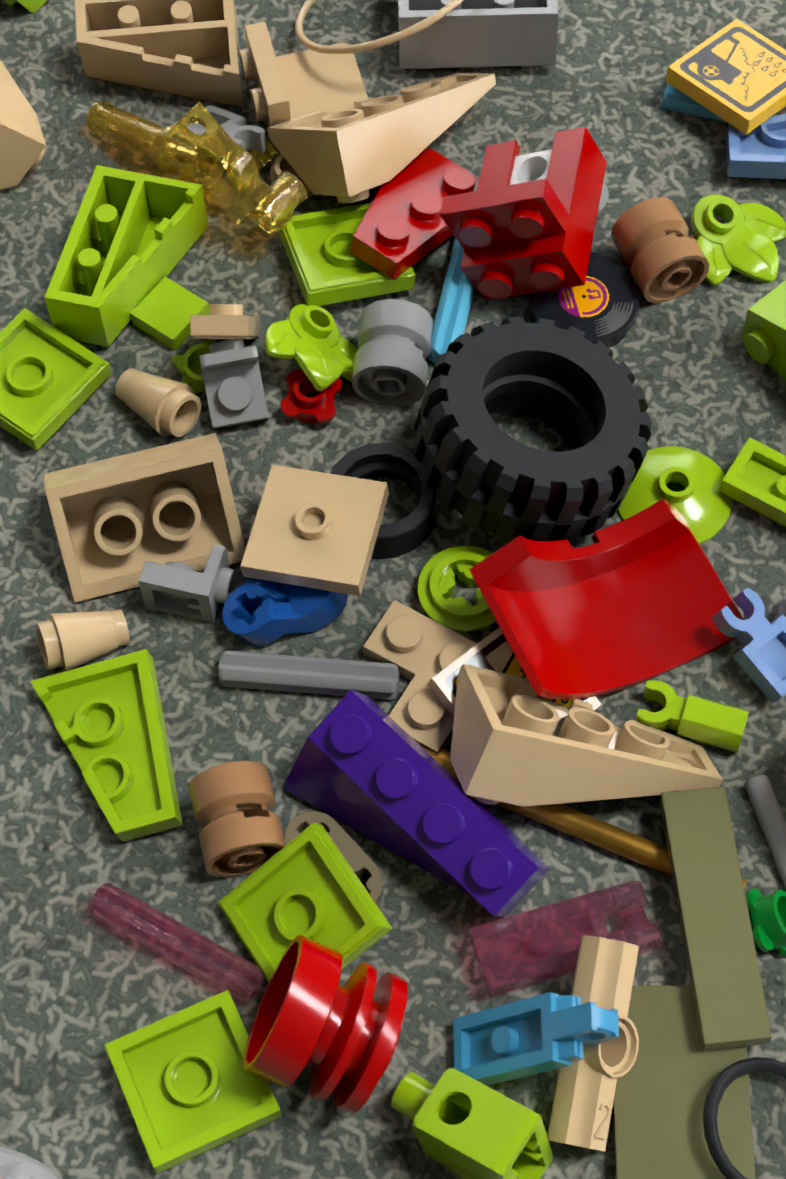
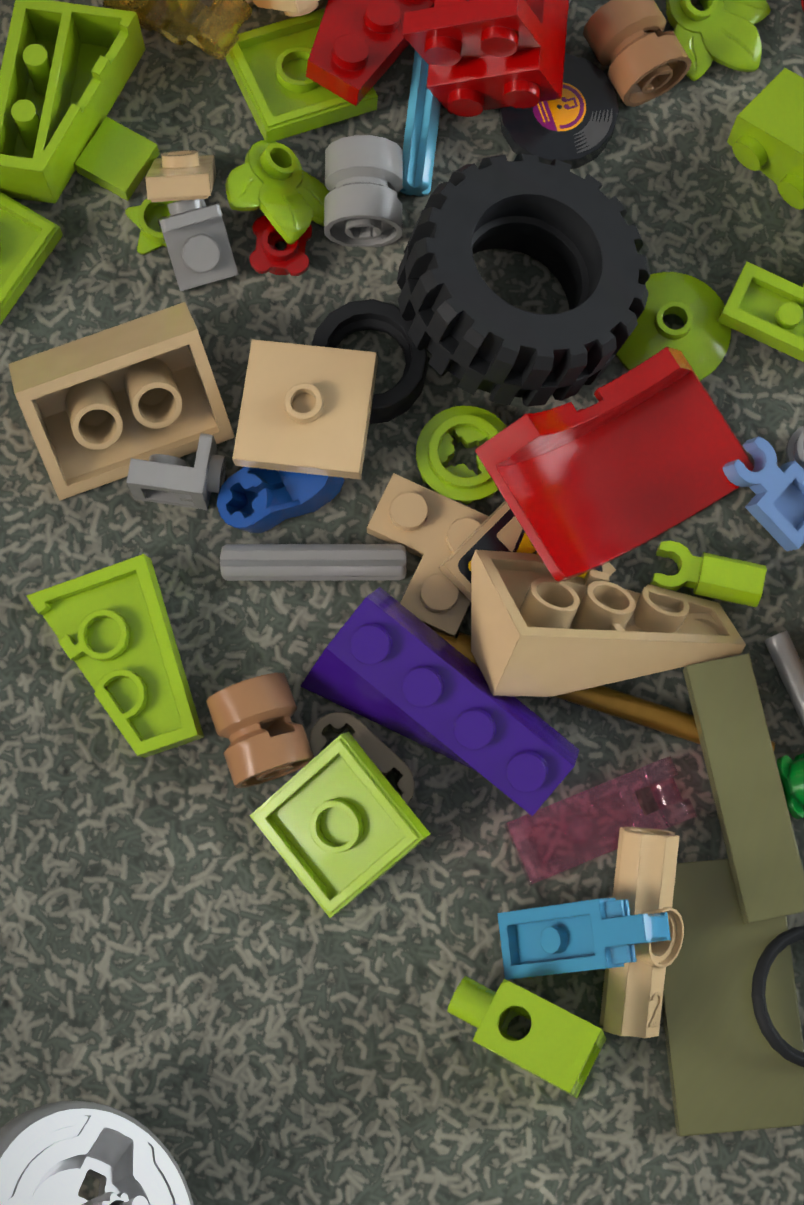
camera: 10 degrees left, 15 degrees up
(80, 637) = (72, 542): tan cone -> none
(160, 401) = (119, 266): tan cone -> none
(176, 942) = (212, 860): clear pink axle -> none
(190, 1081) = (247, 1002): lime plate -> none
(336, 1028) = (378, 946): red wheel -> none

